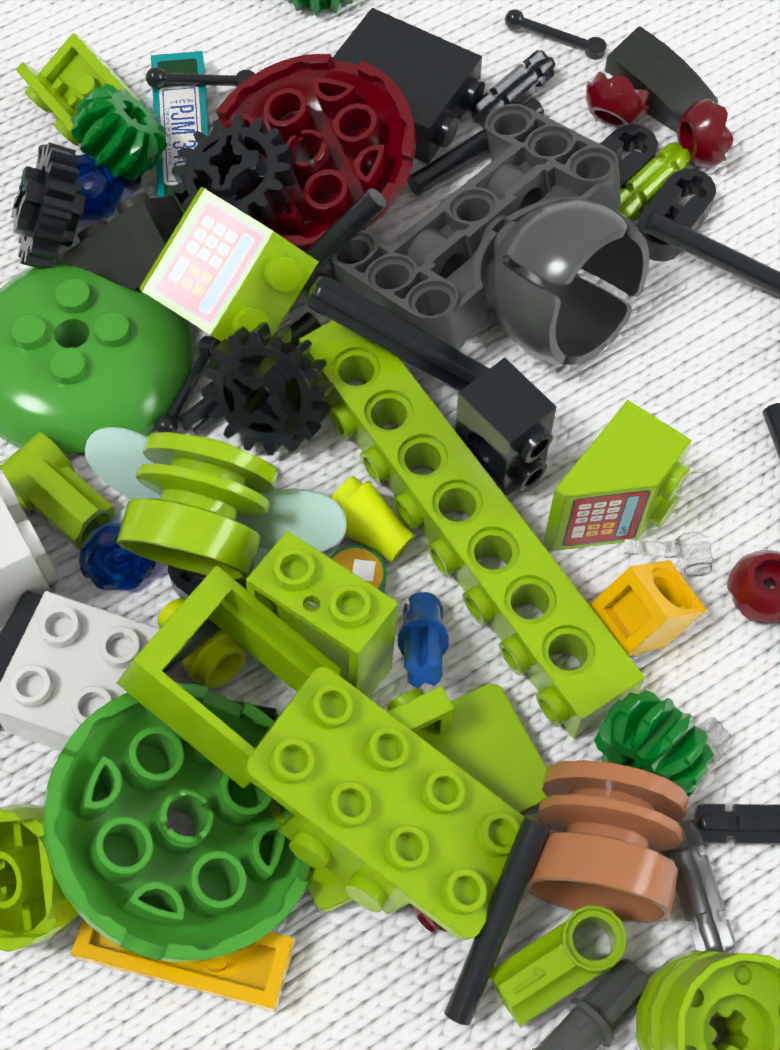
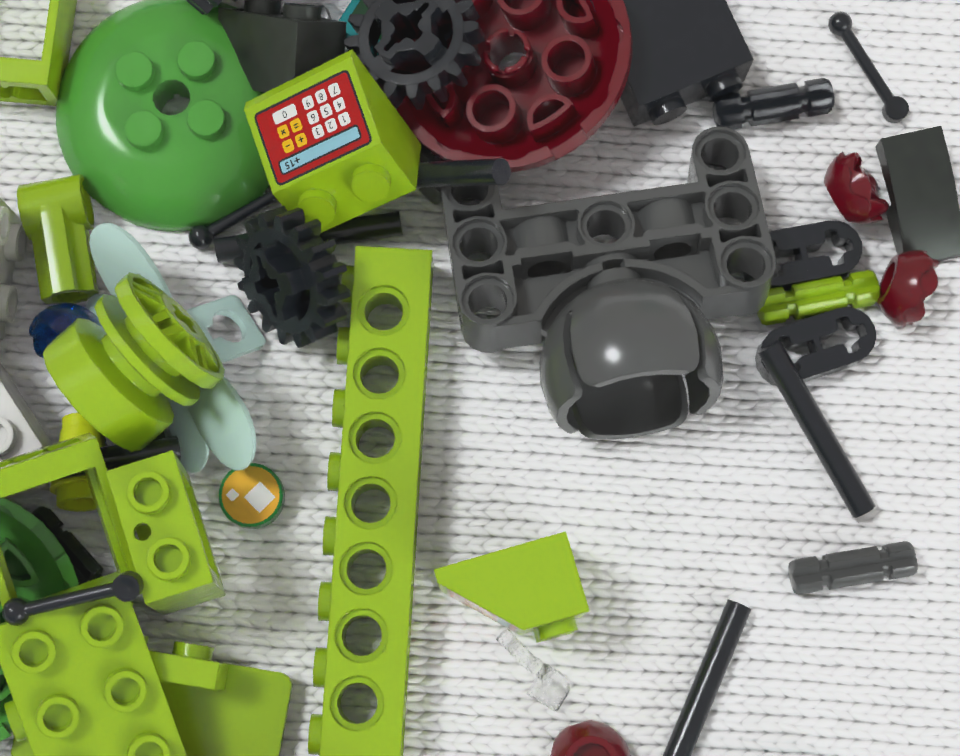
camera: 35 degrees right, 15 degrees up
(332, 648) = (124, 587): none -> black hinge
(371, 519) = (297, 452): neon yellow cone -> none
(393, 333) = (444, 324): black axle -> none
(423, 639) = (249, 603): blue axle -> none
(456, 158) = (679, 141): black bar -> none
(506, 426) = (462, 465): black brick -> none
(648, 607) = (458, 713): yellow brick -> none

